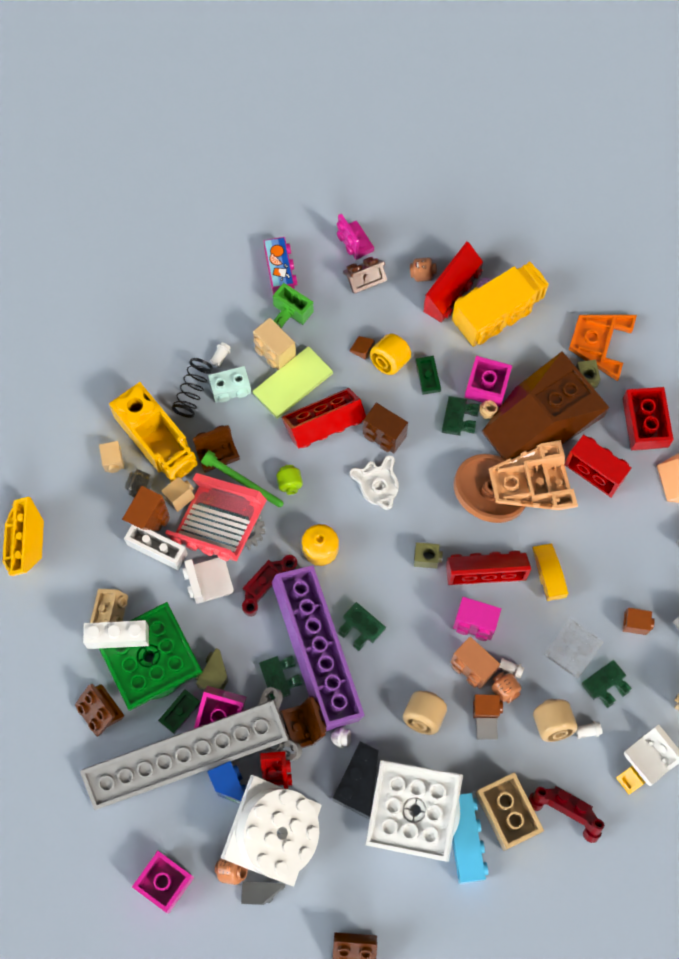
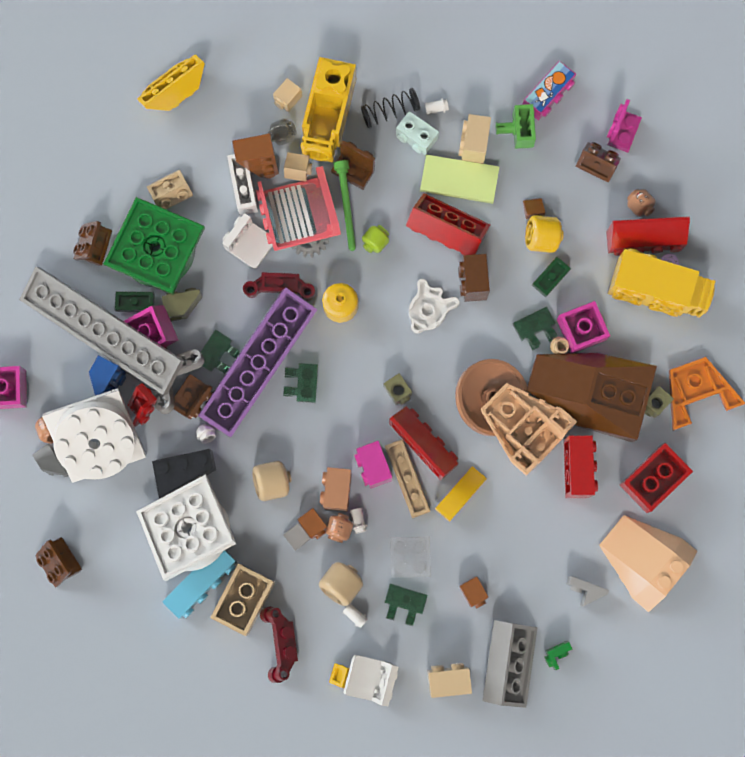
camera: 55 degrees right, 10 degrees up
(116, 634) = (147, 209): white brick -> none
(510, 605) = (407, 478): none -> tan tile

